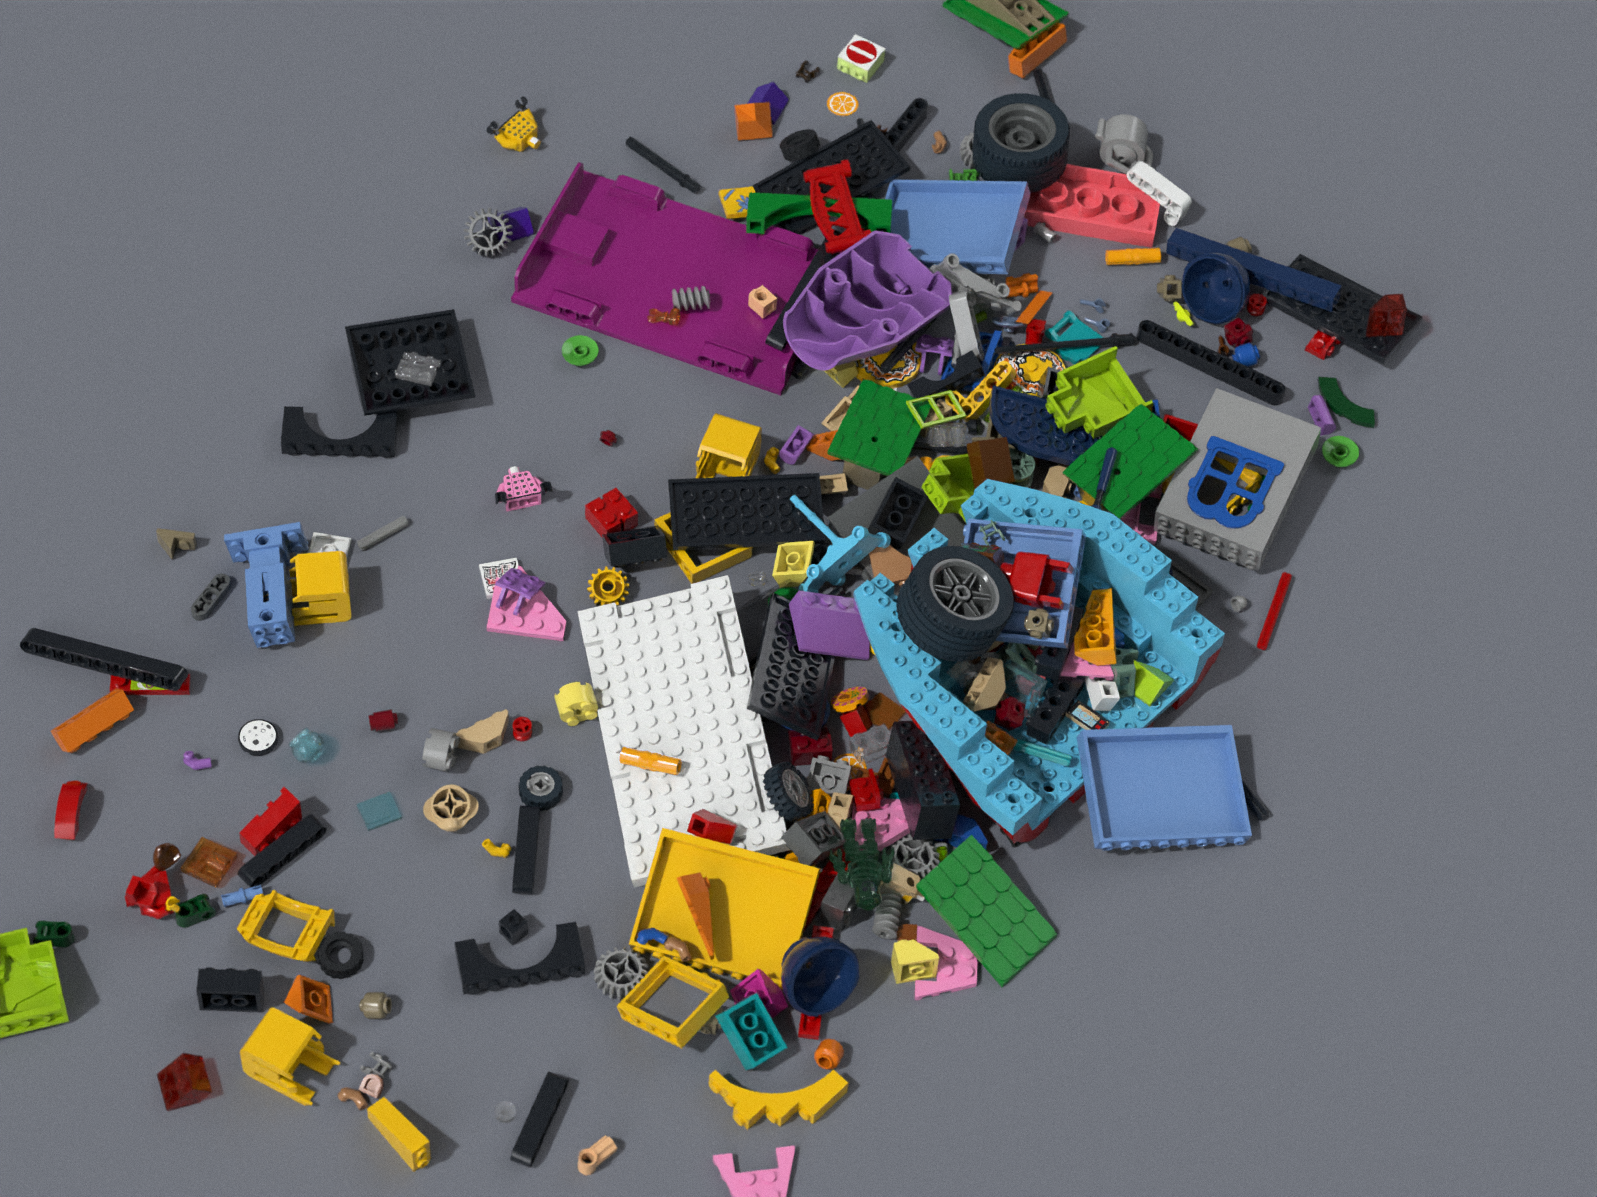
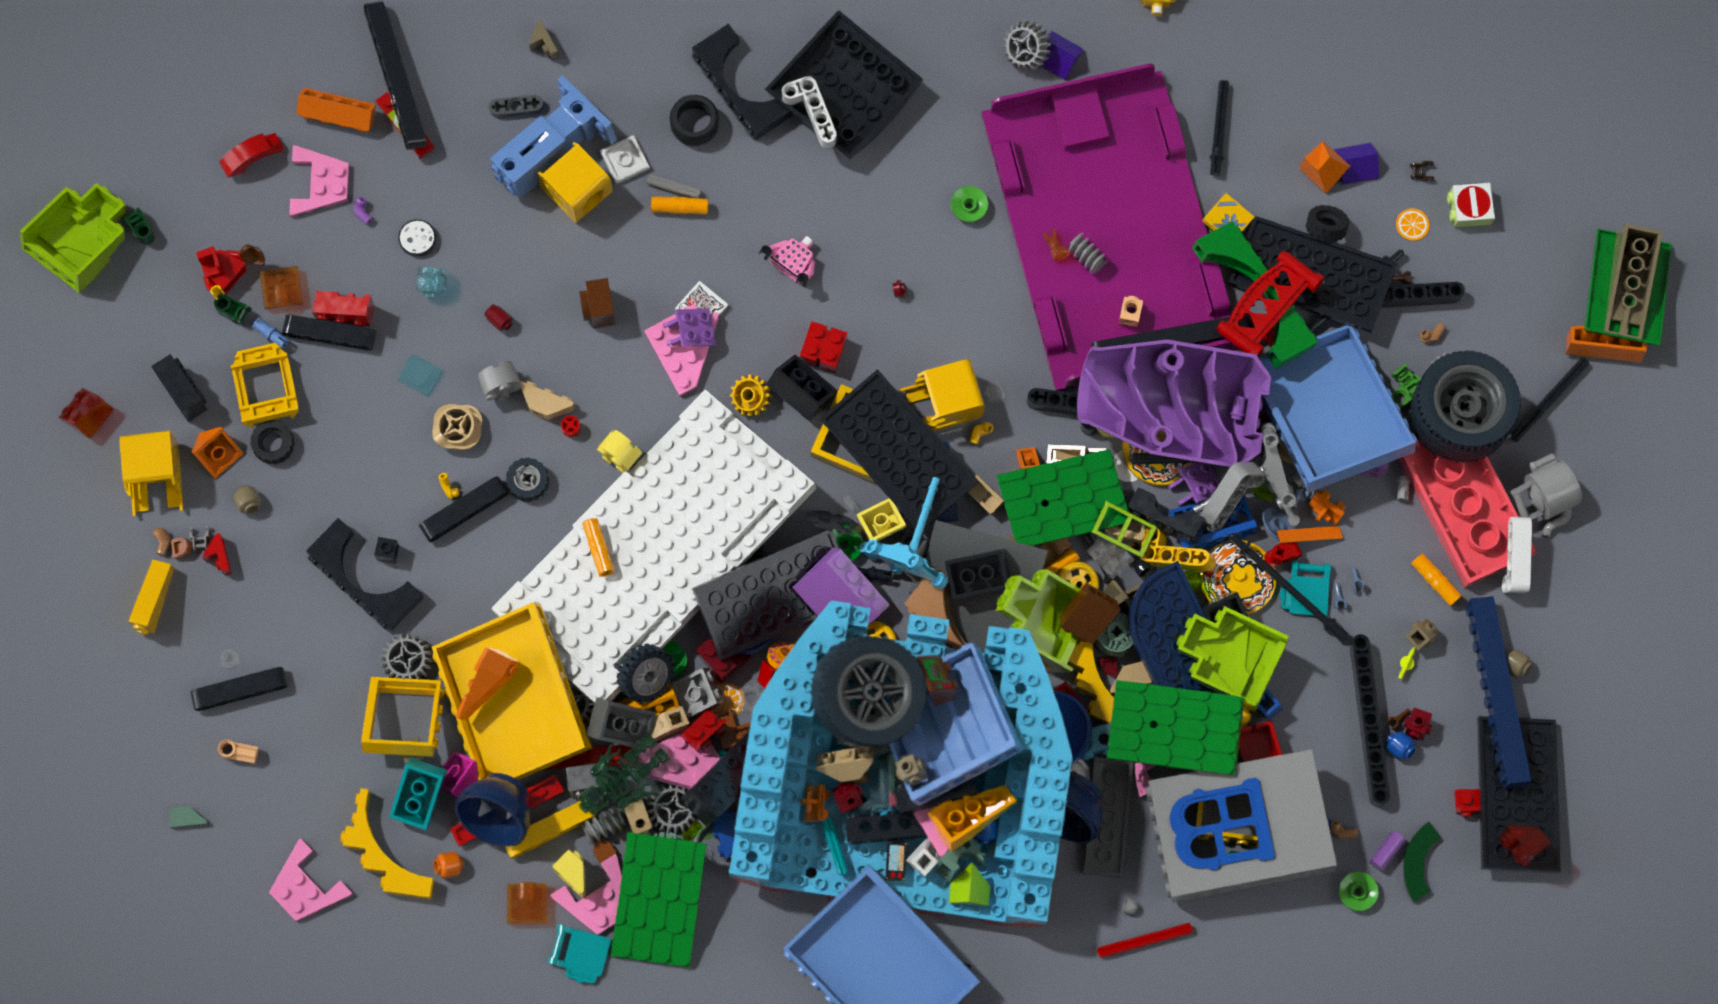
camera: 55 degrees right, 20 degrees up
(144, 769) = (328, 181): none -> bright pink wing
(341, 466) = (689, 102): none -> black tyre
(403, 537) = (679, 205): none -> light orange axle
(403, 1055) = (218, 550): none -> red slope
(414, 386) = (814, 113): none -> white beam
(417, 372) = (832, 97): clear plate -> none
(437, 638) = (597, 303): none -> reddish brown piece
(649, 934) = (448, 658): blue arm -> none
(680, 946) = (453, 687): medium nougat arm -> none
(711, 827) = (565, 637): red slope -> none
(795, 445) = (1009, 440): medium lavender brick -> none
(799, 389) = (1062, 407): none -> black beam
(860, 944) = (550, 829): none -> yellow beam
(908, 1017) = (527, 903): none -> clear orange plate
(986, 1004) = (584, 954): none -> teal piece
(992, 524) = (976, 667): sand green piece -> none
(1032, 579) = (941, 736): red piece -> none
(1107, 467) = (1139, 717): dark blue piece -> none
(1218, 301) = (1445, 685): dark blue piece -> none
(1256, 304) = (1470, 716): red wheel -> none

